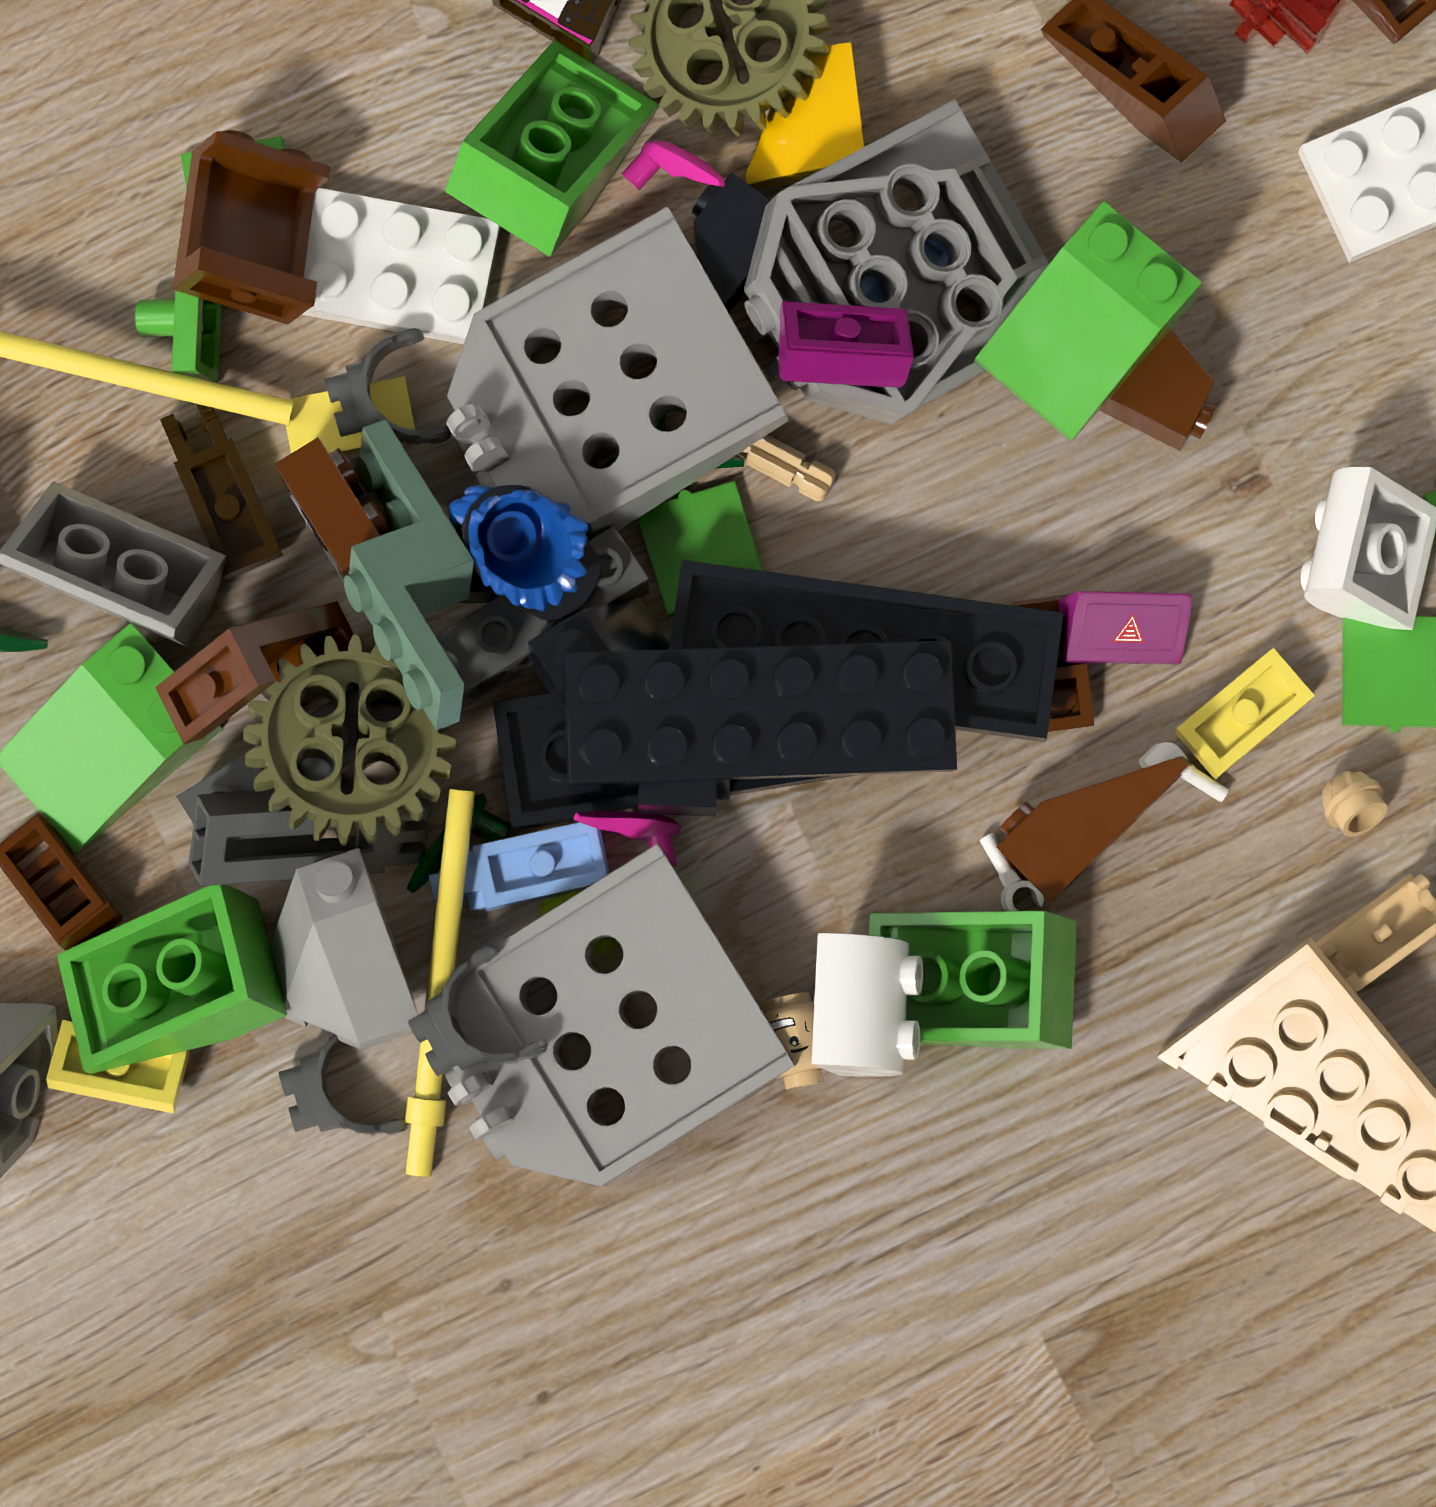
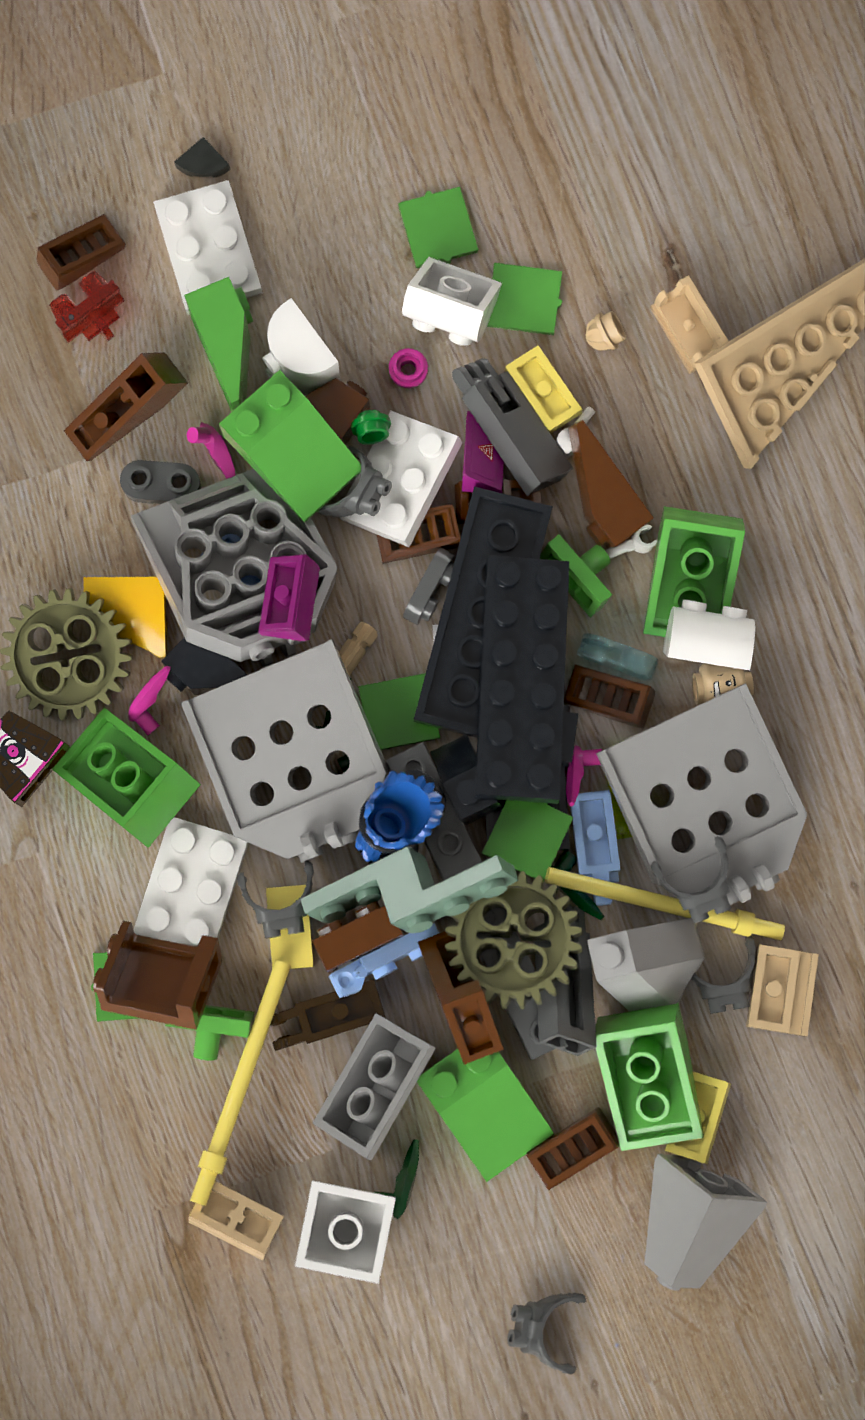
camera: 85 degrees left, 0 degrees up
(304, 553) = (379, 962): none -> light blue hinge
(326, 1180) = (782, 990): none -> tan plate
(518, 760) = (528, 836): none -> bright green piece
(753, 921) = (643, 706): none -> reddish brown slope
(824, 873) = (617, 656): none -> clear light blue piece
(878, 561) = (422, 602): none -> dark grey plate
(952, 799) = (583, 582): none -> bright green tile
(1005, 591) = (422, 548): none -> reddish brown slope
(1021, 140) = (159, 481): none -> dark grey plate
(1039, 450) = (365, 495): none -> dark grey helmet
(1069, 504) = (416, 463): none -> white plate
(1098, 190) = (215, 446): none -> dark pink bar
(1142, 445) = (371, 427): none -> green plate
(1162, 680) = (512, 426): none -> dark grey hinge
(1248, 315) = (298, 350): none -> white brick
(1254, 206) = (221, 323): none -> bright green slope
(1265, 485) = (404, 357): none -> dark pink plate

